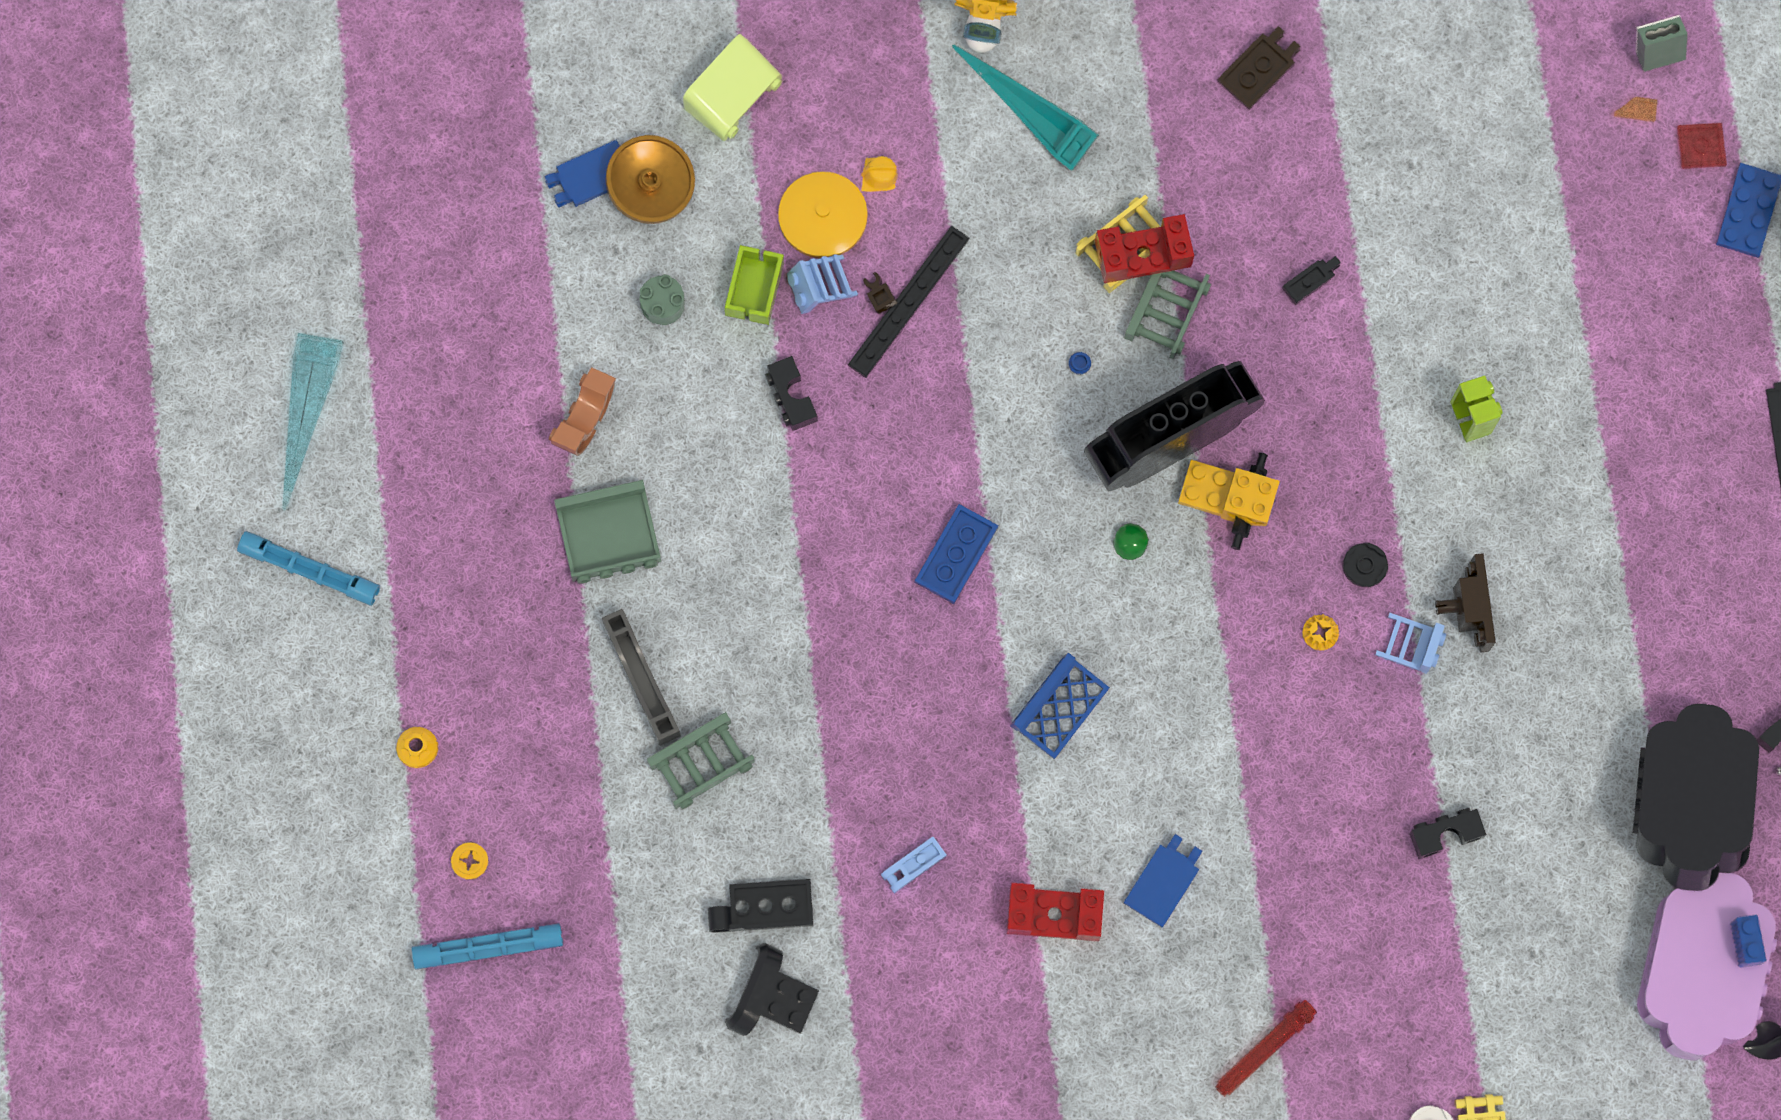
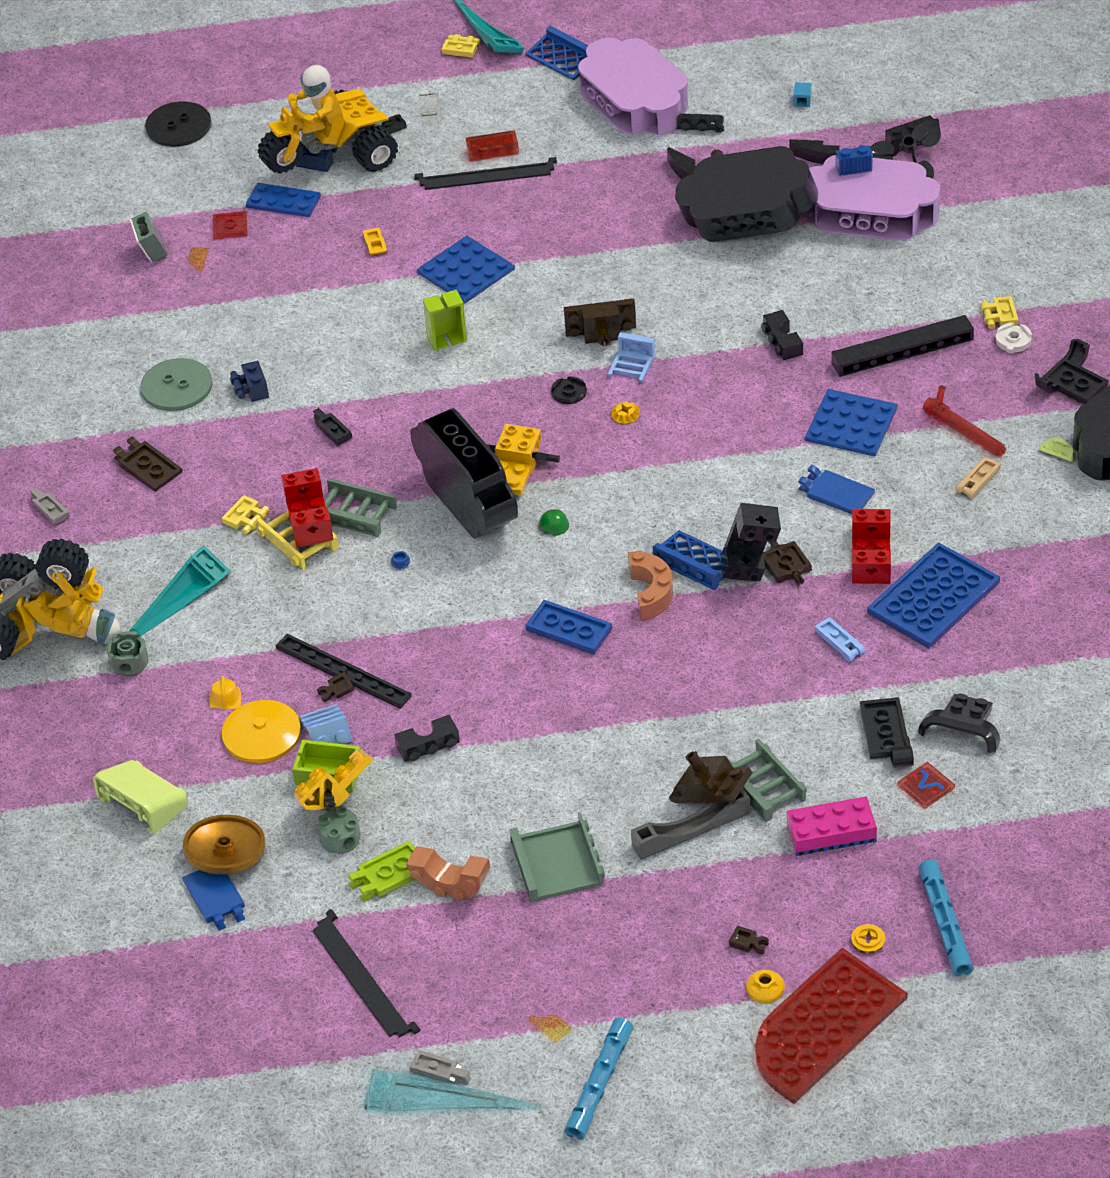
camera: 85 degrees left, 30 degrees down
(338, 407) = (439, 1068): none -> light grey hinge
(359, 803) = (822, 1023): none -> clear red plate
(384, 523) = (552, 1026): none -> clear yellow tile
(467, 328) = (361, 978): none -> black piece
(478, 729) = (746, 939): none -> dark brown plate
(609, 353) = (383, 872): none -> lime tile
(624, 832) = (831, 826): none -> dark pink brick
(684, 699) = (709, 780): none -> dark brown brick
(684, 945) = (926, 785): none -> clear red tile
(701, 282) = (329, 792): none -> yellow piece
(941, 62) = (127, 653): none -> sand green brick
(979, 982) = (933, 595): none -> blue plate
(1010, 661) = (658, 575): none -> nougat brick
(1045, 811) = (786, 562): none -> dark brown plate
(1048, 769) = (748, 536): none -> black plate
(1170, 179) = (240, 514): none -> light yellow plate
(1175, 1057) = (978, 477): none -> tan plate
(1286, 909) = (851, 422): none -> blue plate
(1392, 185) = (254, 382): none -> dark blue brick
(1401, 94) = (176, 384): none -> sand green plate
(1420, 985) = (902, 345): none -> black brick
(1601, 440) = (466, 268): none -> blue plate
(1659, 326) = (374, 241): none -> yellow slope

